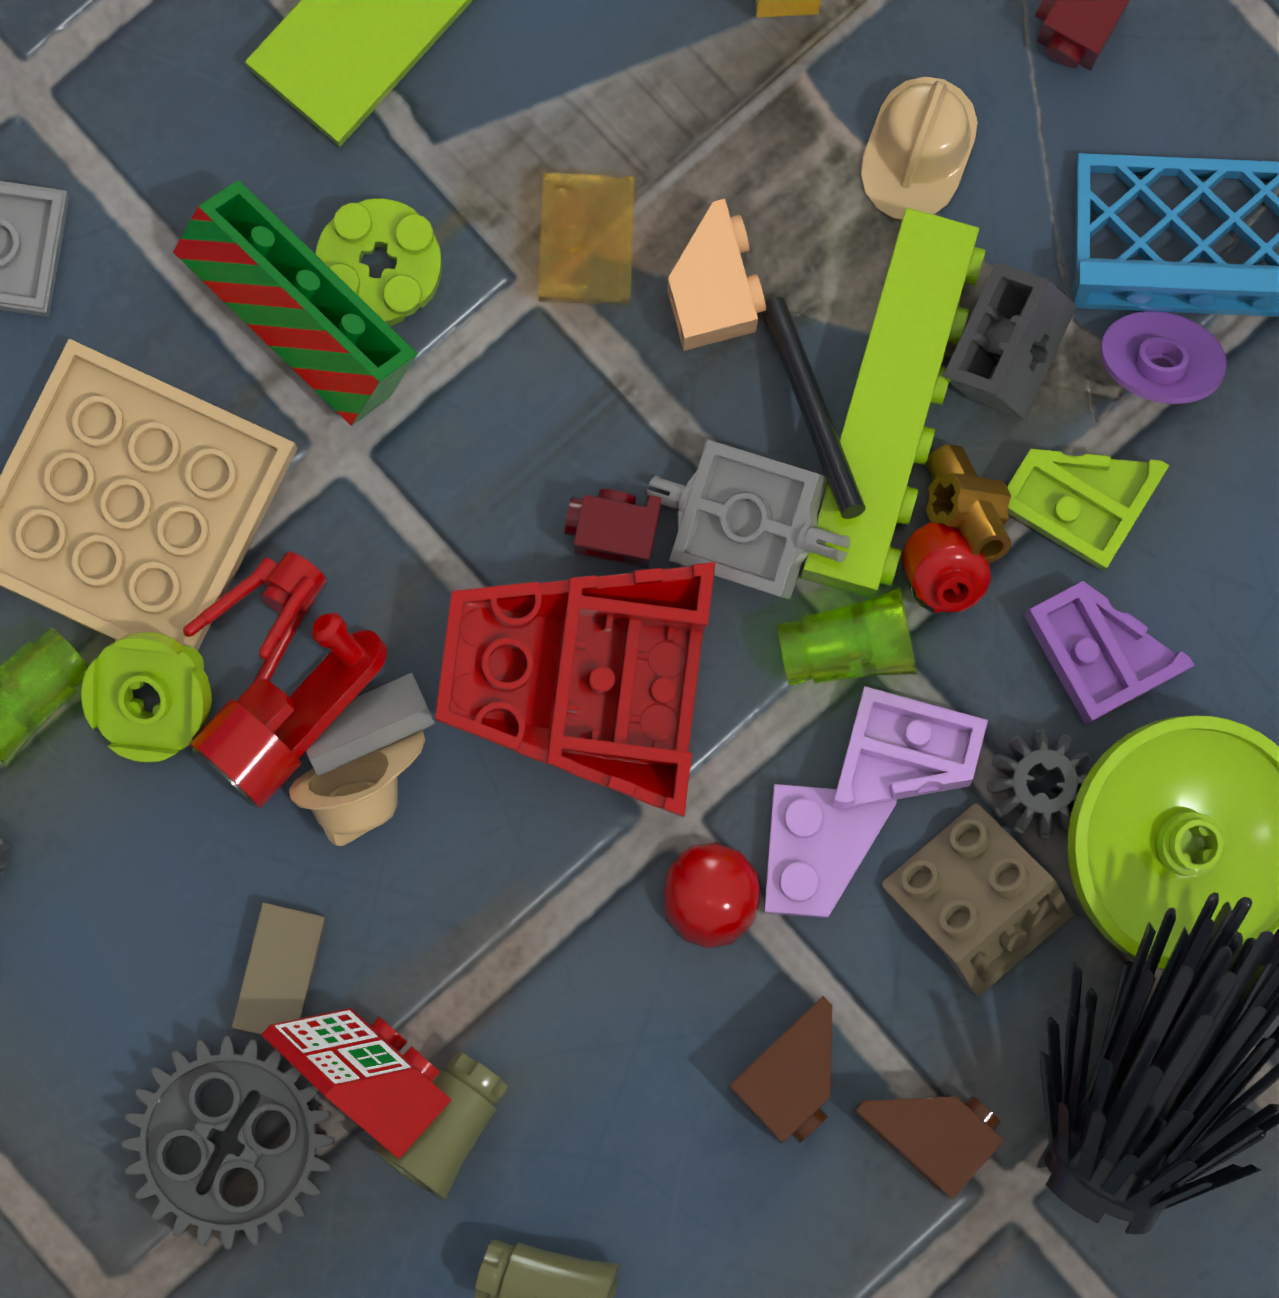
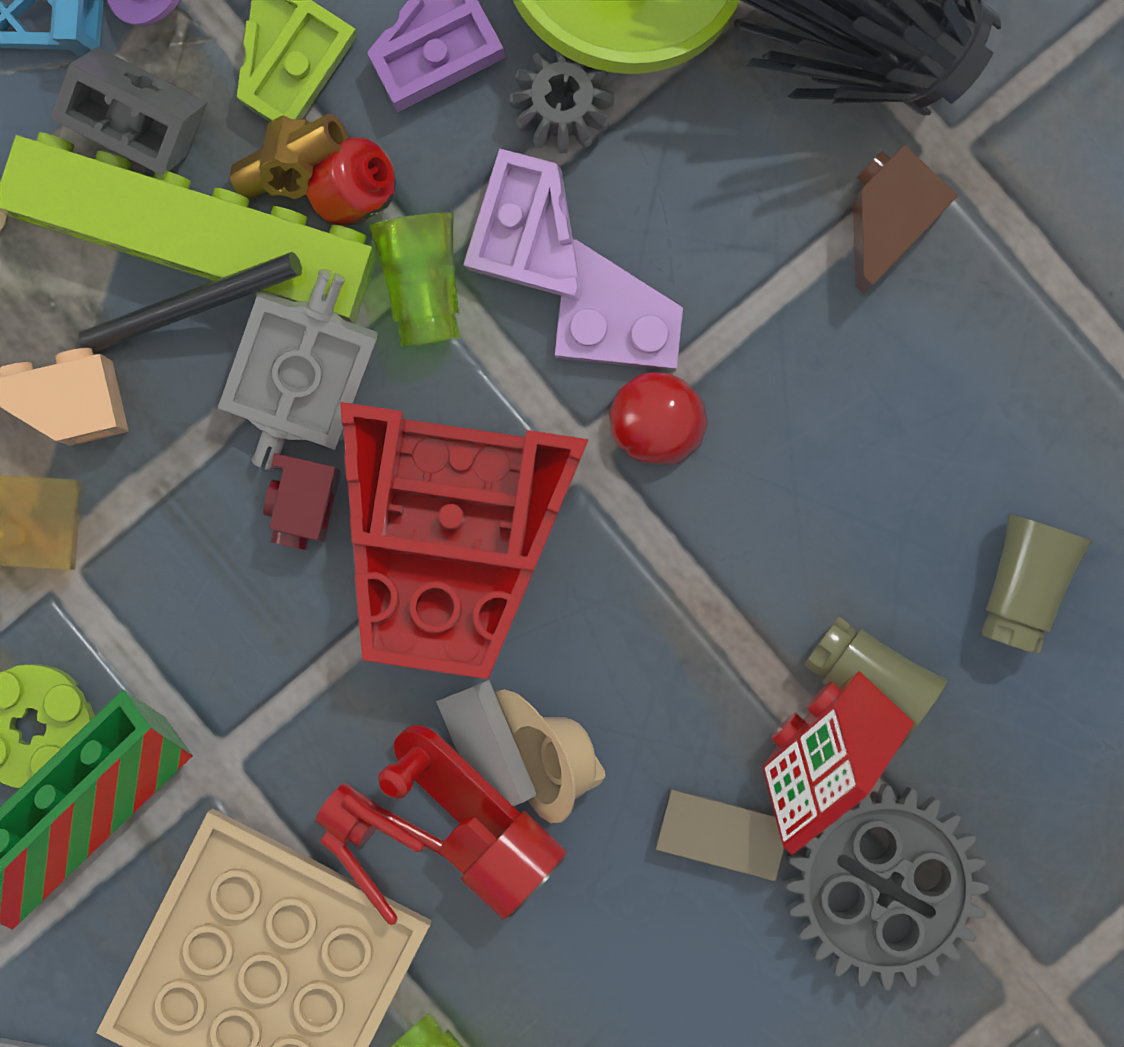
camera: 90 degrees left, 5 degrees up
(174, 673) = (434, 933): lime plate -> none
(791, 1077) = (833, 346): reddish brown slope -> none
(979, 898) = (666, 165): dark tan bracket -> none

